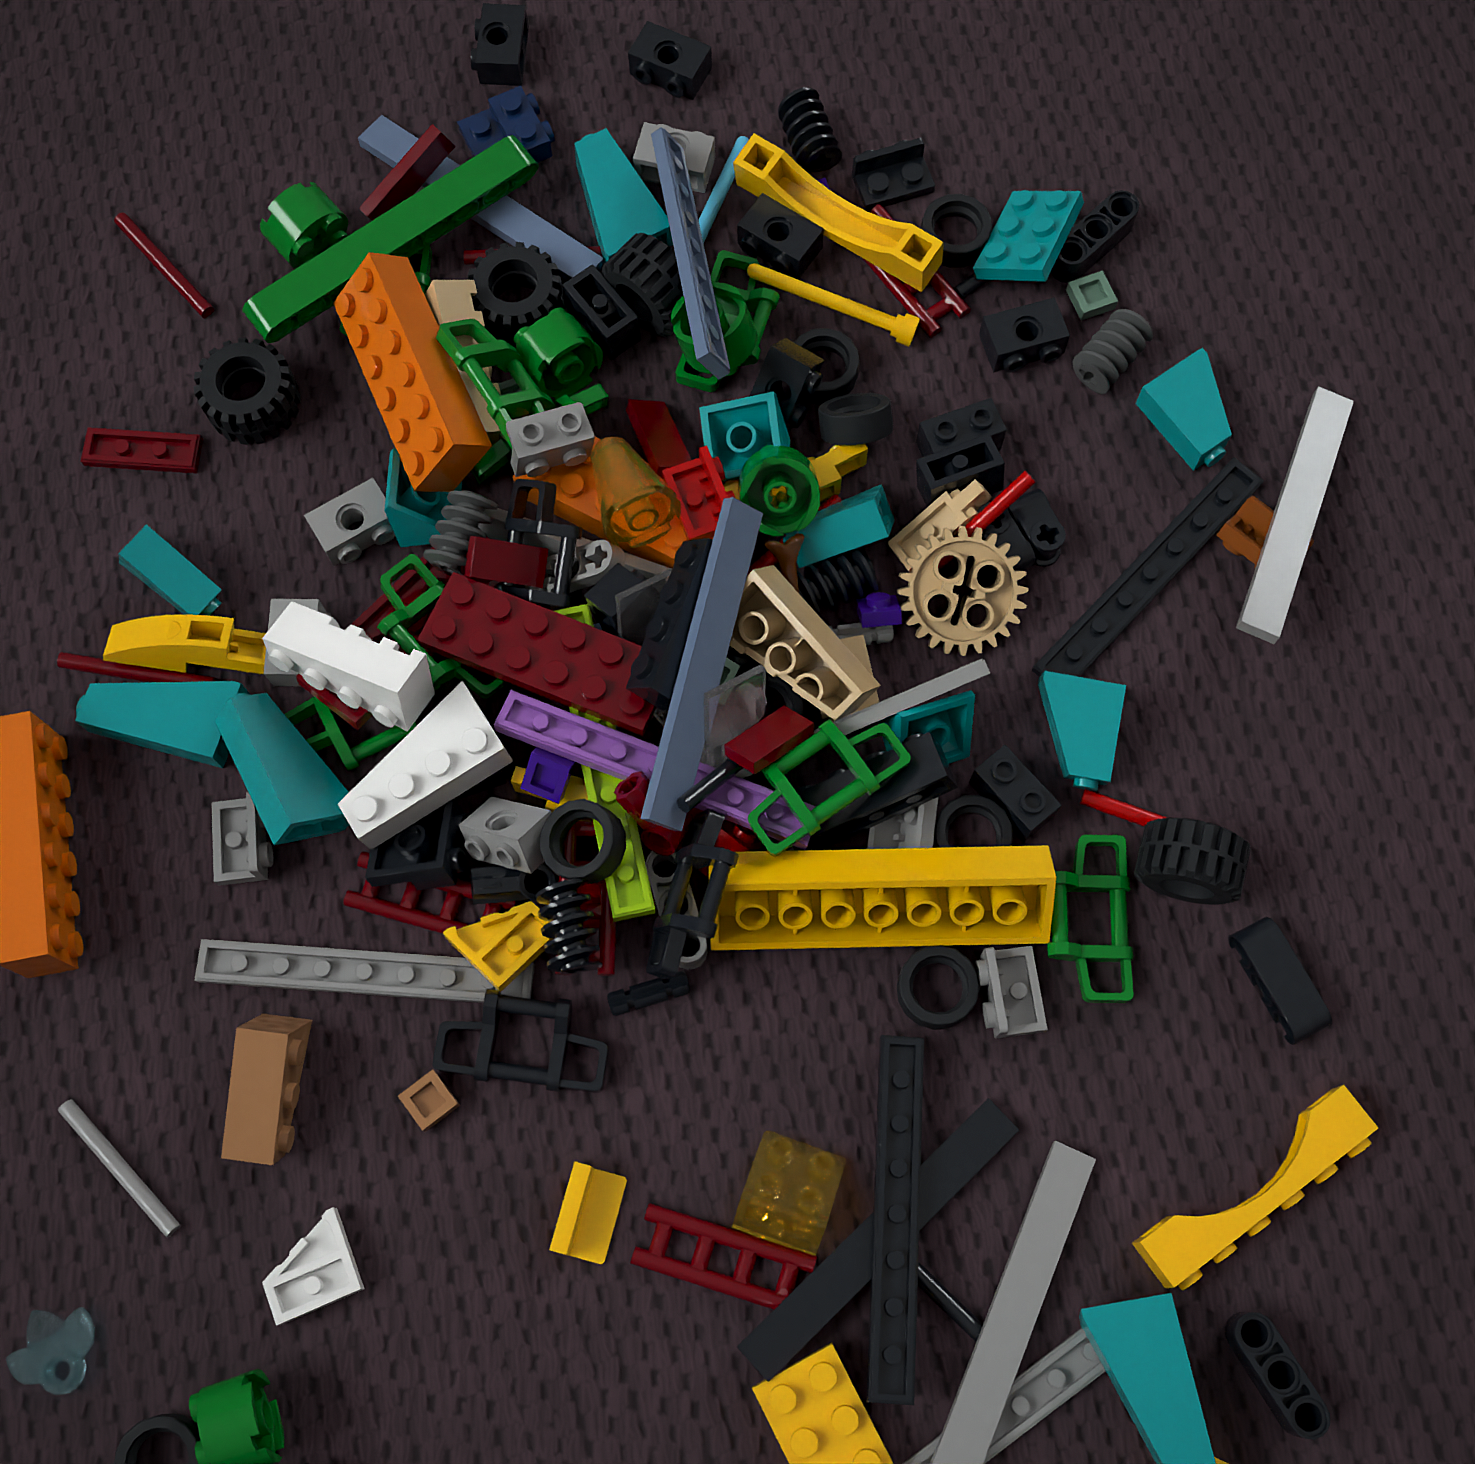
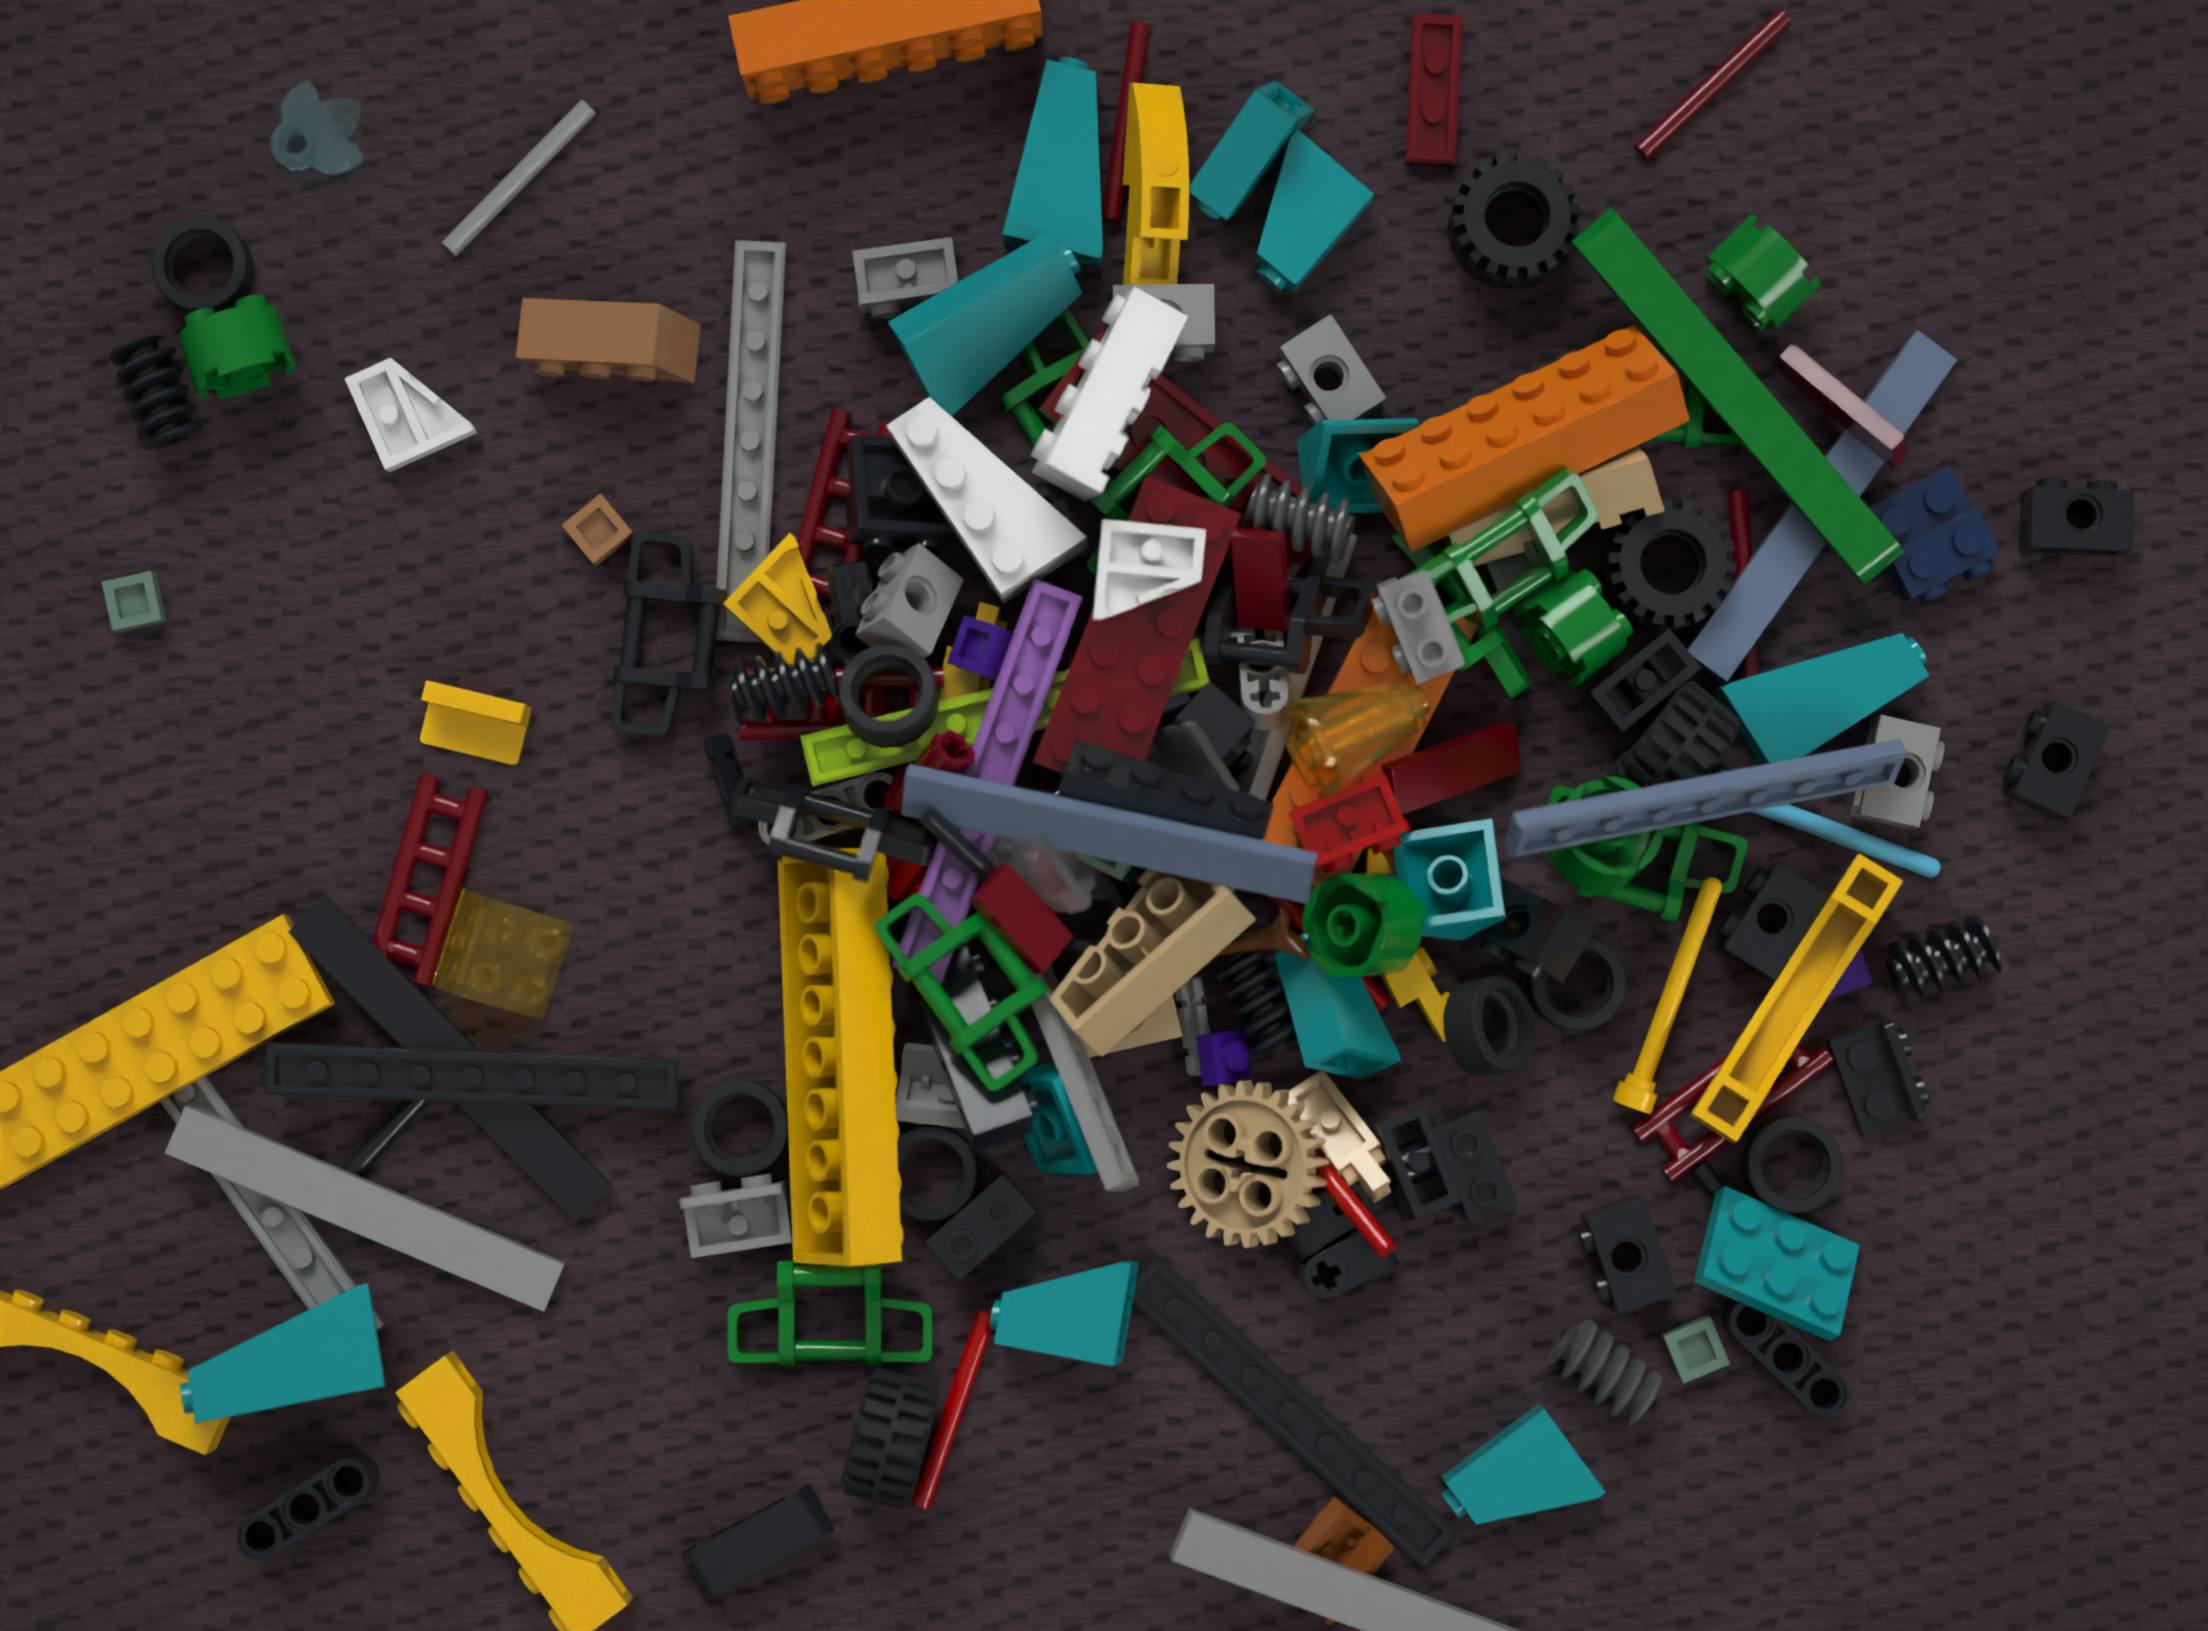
camera: 85 degrees right, 15 degrees up
(224, 537) = (1308, 214): none -> teal slope
(487, 635) = (1144, 564): none -> white wing

